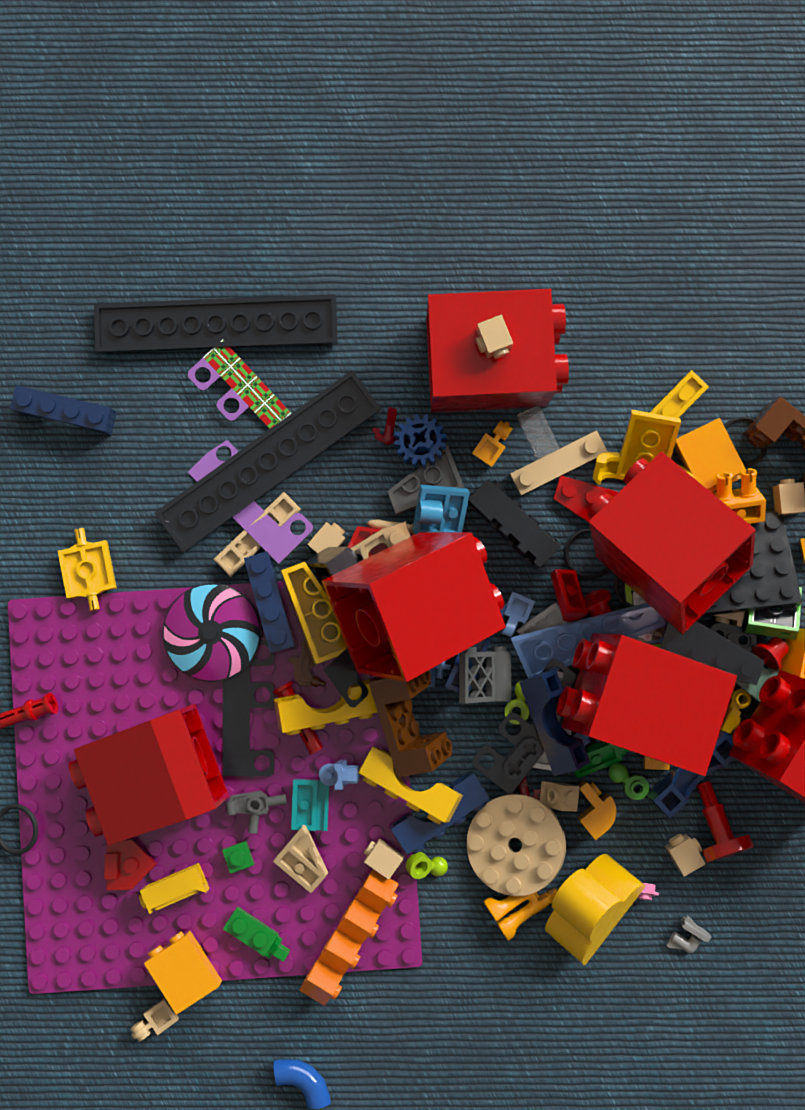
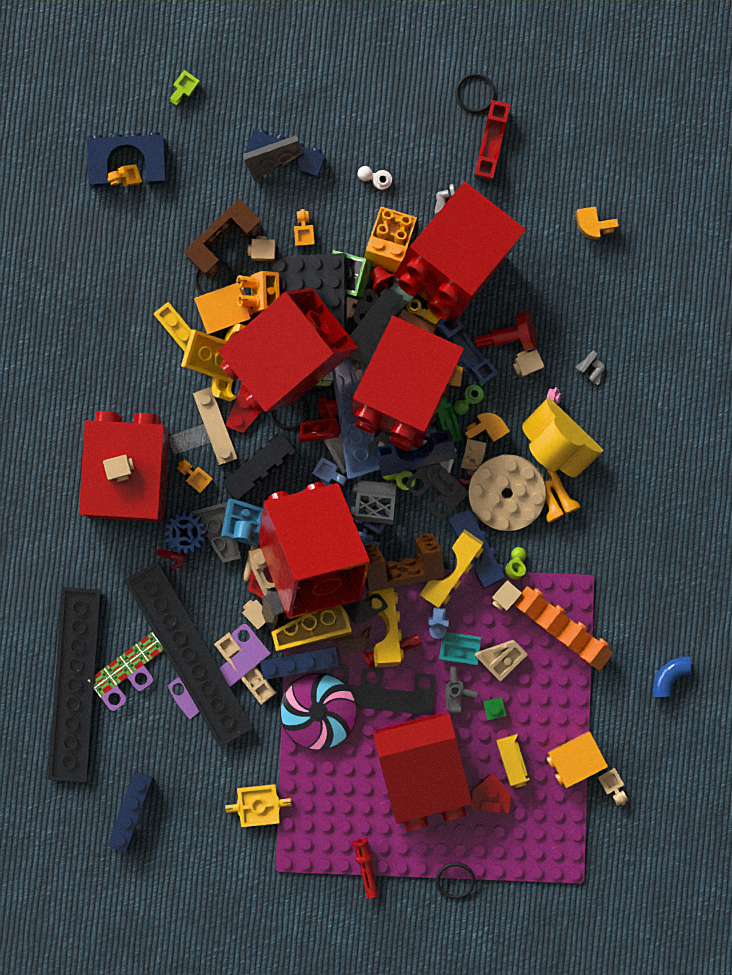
camera: 85 degrees left, 0 degrees up
(256, 934) = (555, 701): green hinge -> none

